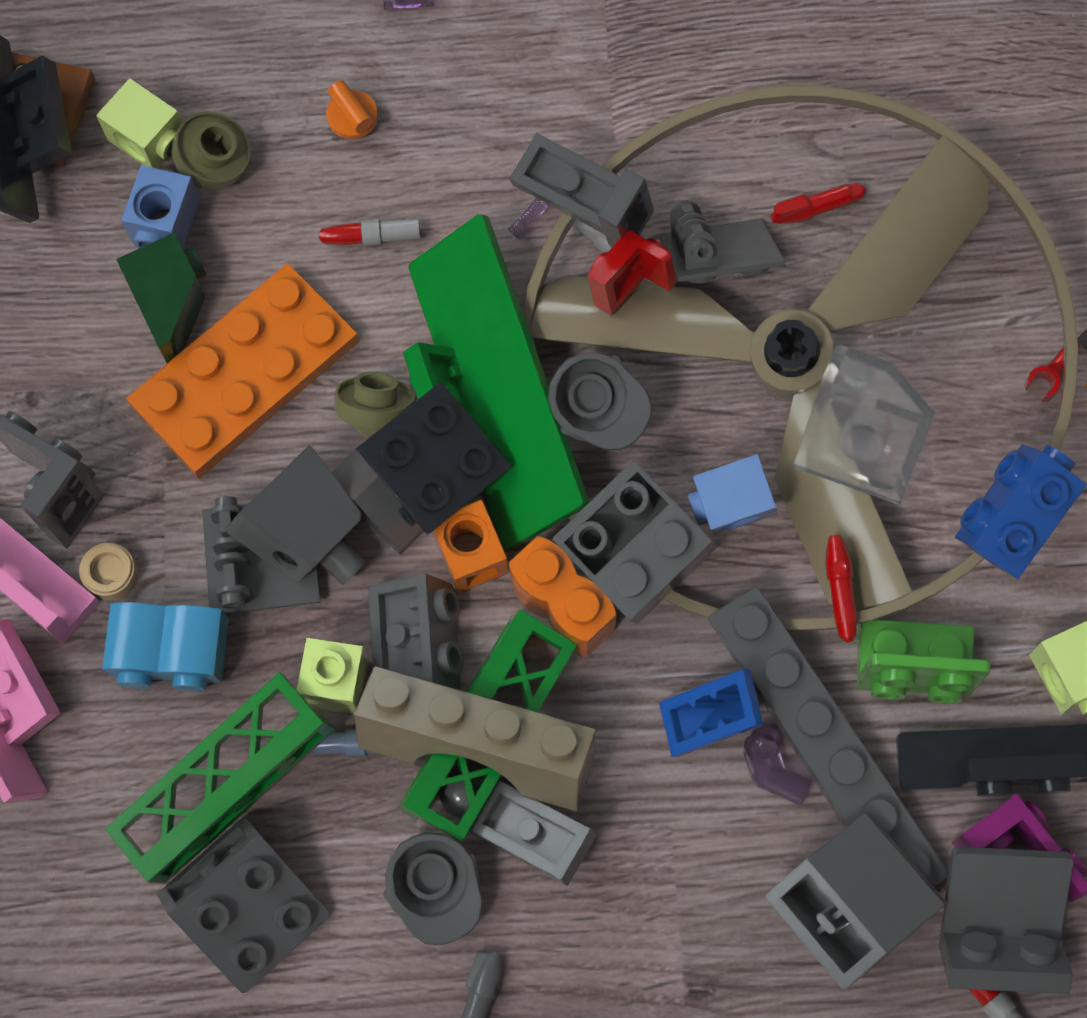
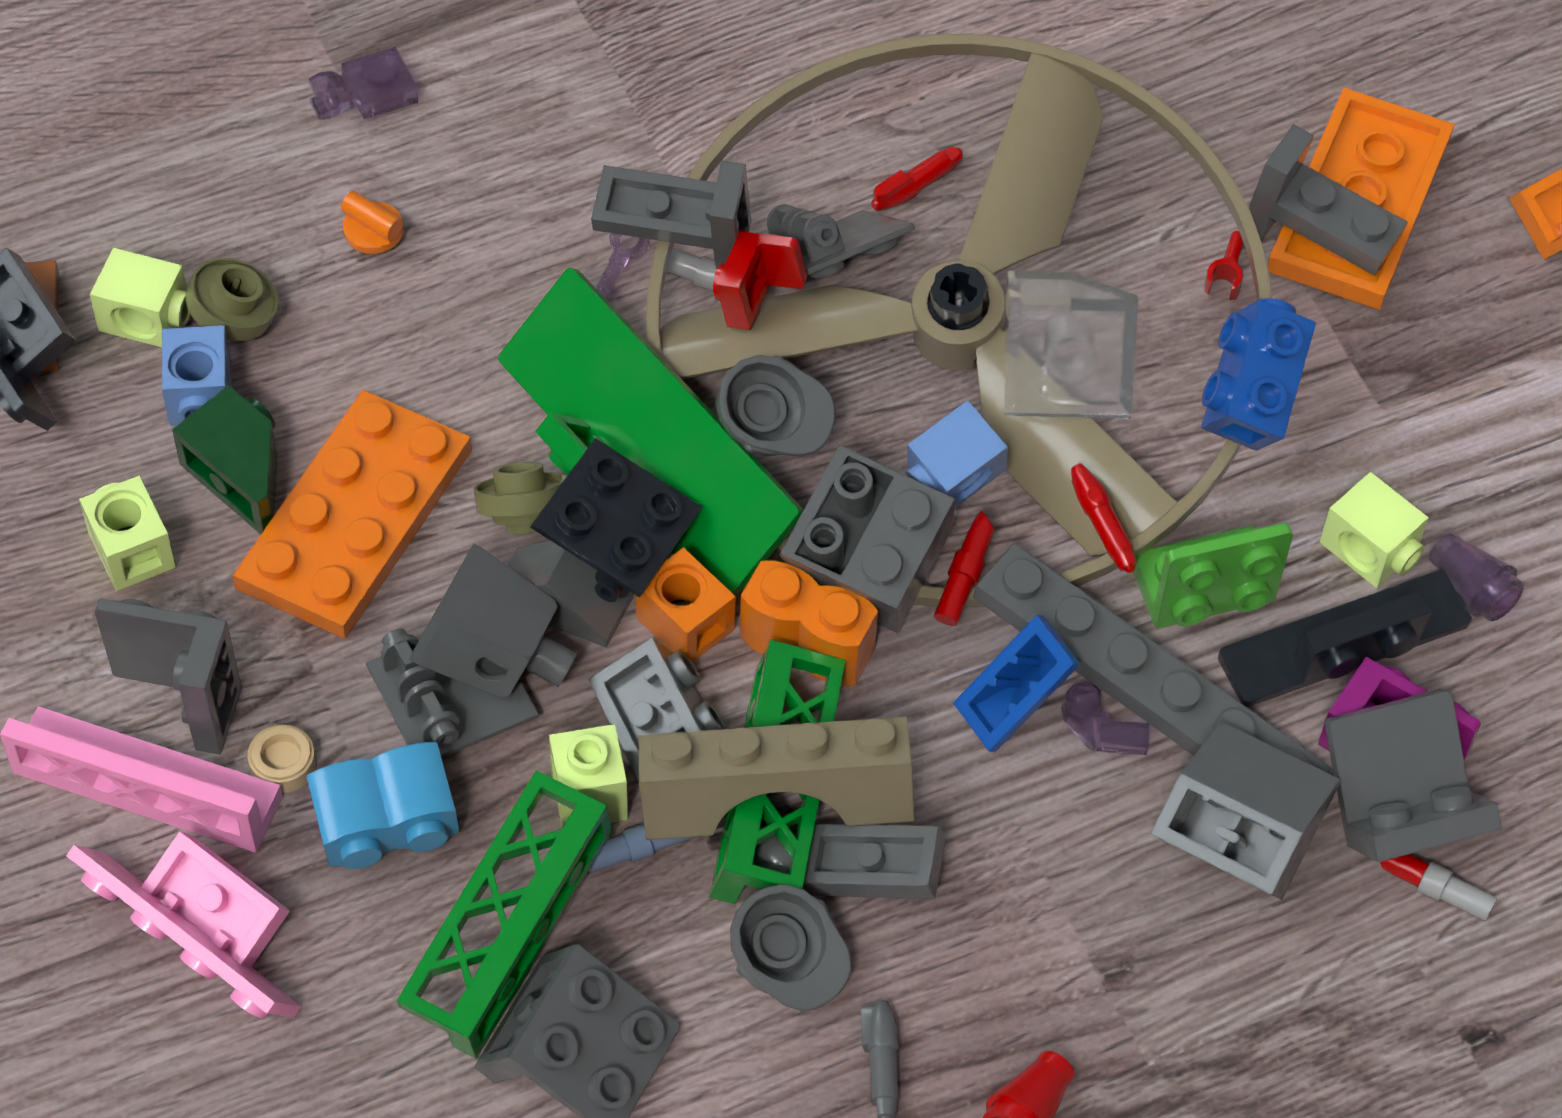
camera: 25 degrees left, 15 degrees down
(61, 354) = (132, 553): none -> yellowish green brick
(371, 232) = (443, 336): light grey piece -> none
(711, 591) = (965, 571): none -> red piece

